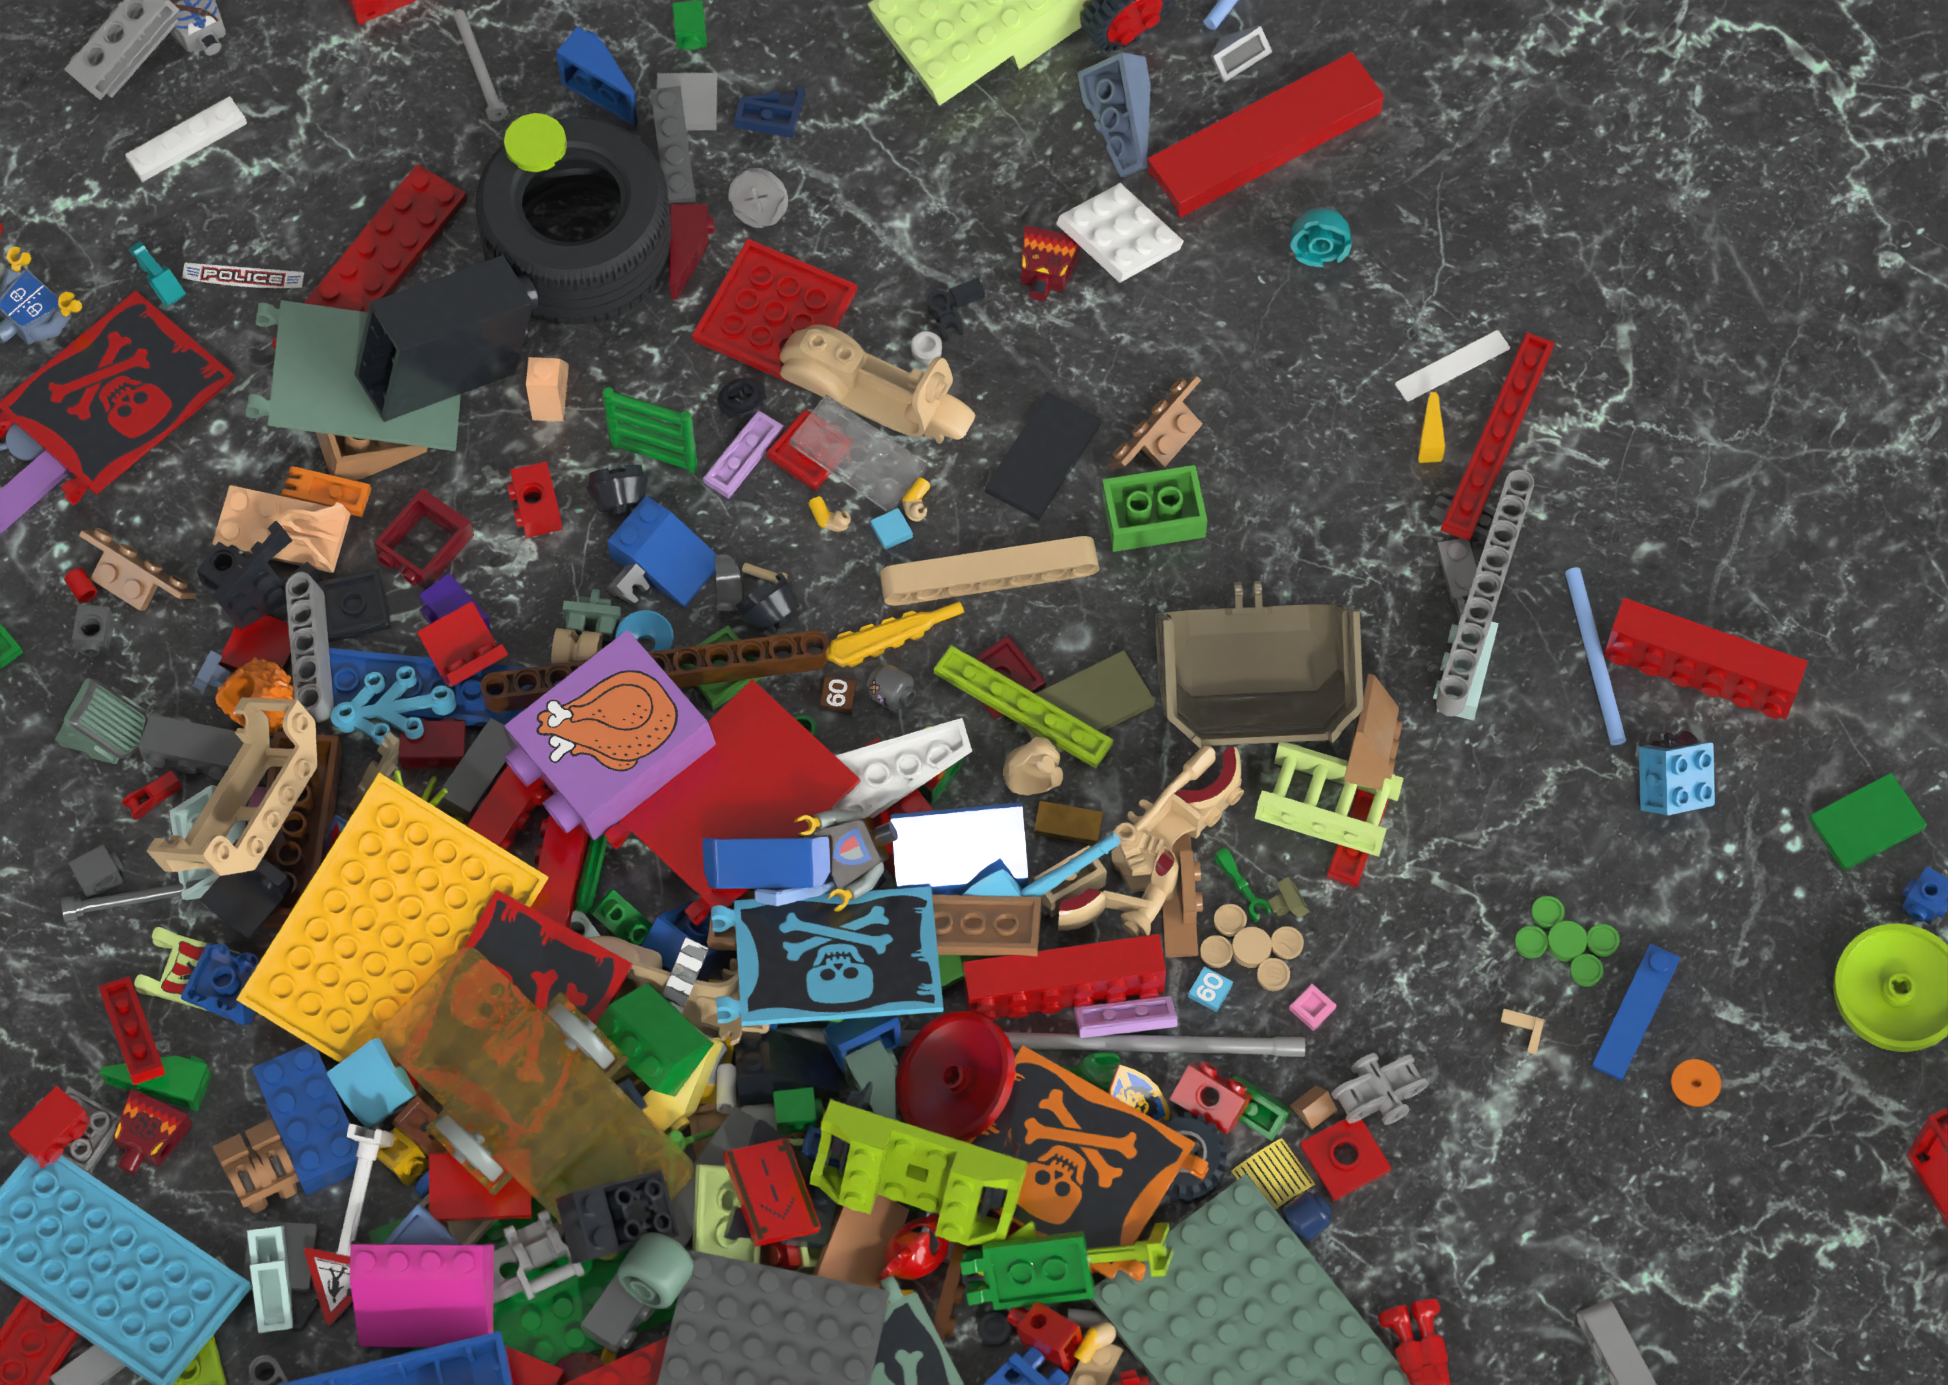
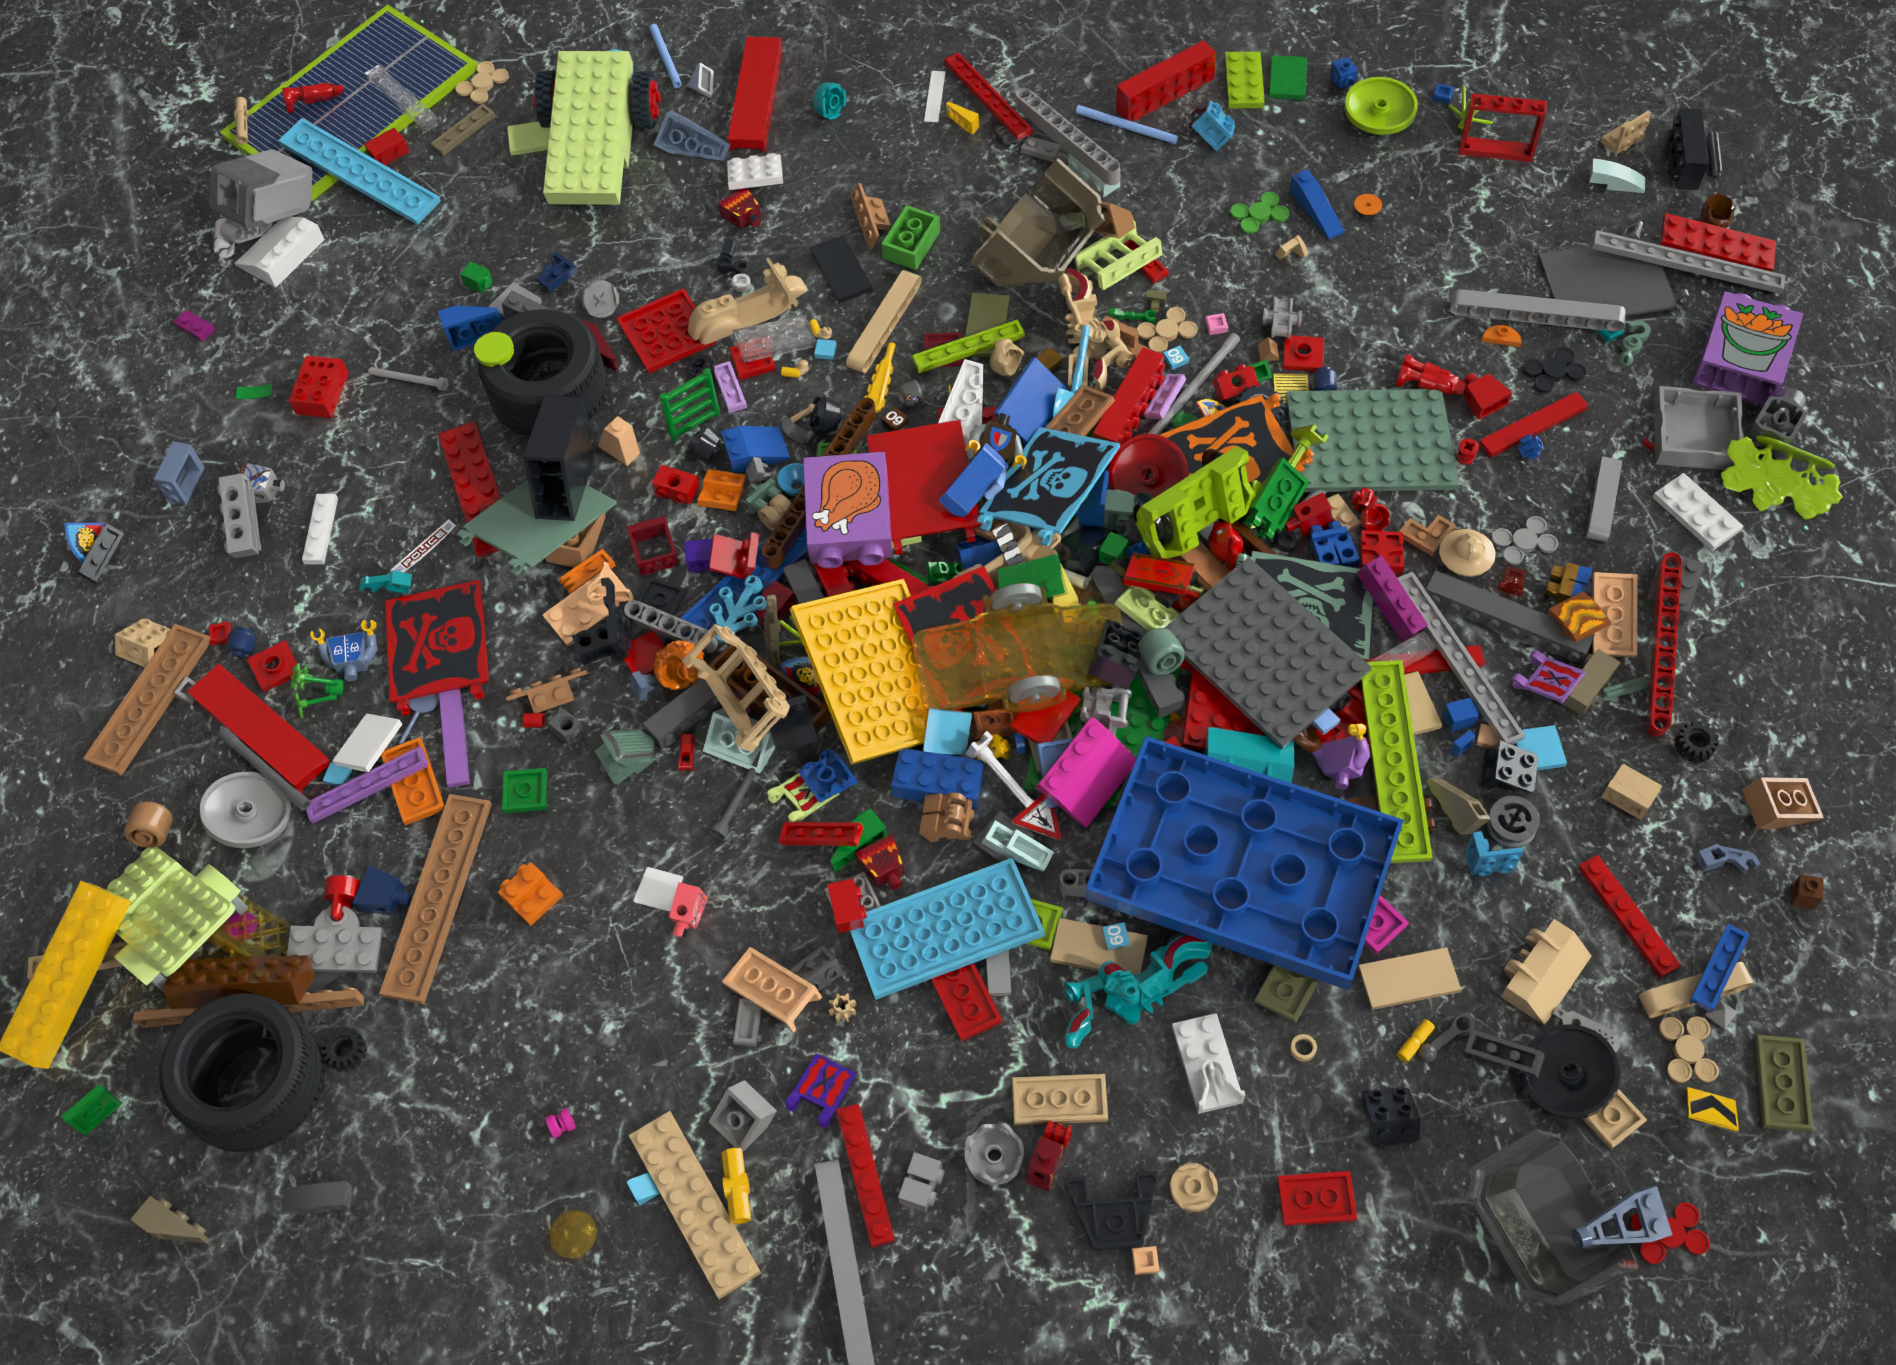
camera: 50 degrees left, 5 degrees down
(97, 871) = (709, 804): dark grey brick -> none
(572, 560) = (722, 490): none -> orange slope
(1095, 1338) = (1329, 495): arm -> none
(1814, 763) = (1244, 79): none -> lime plate

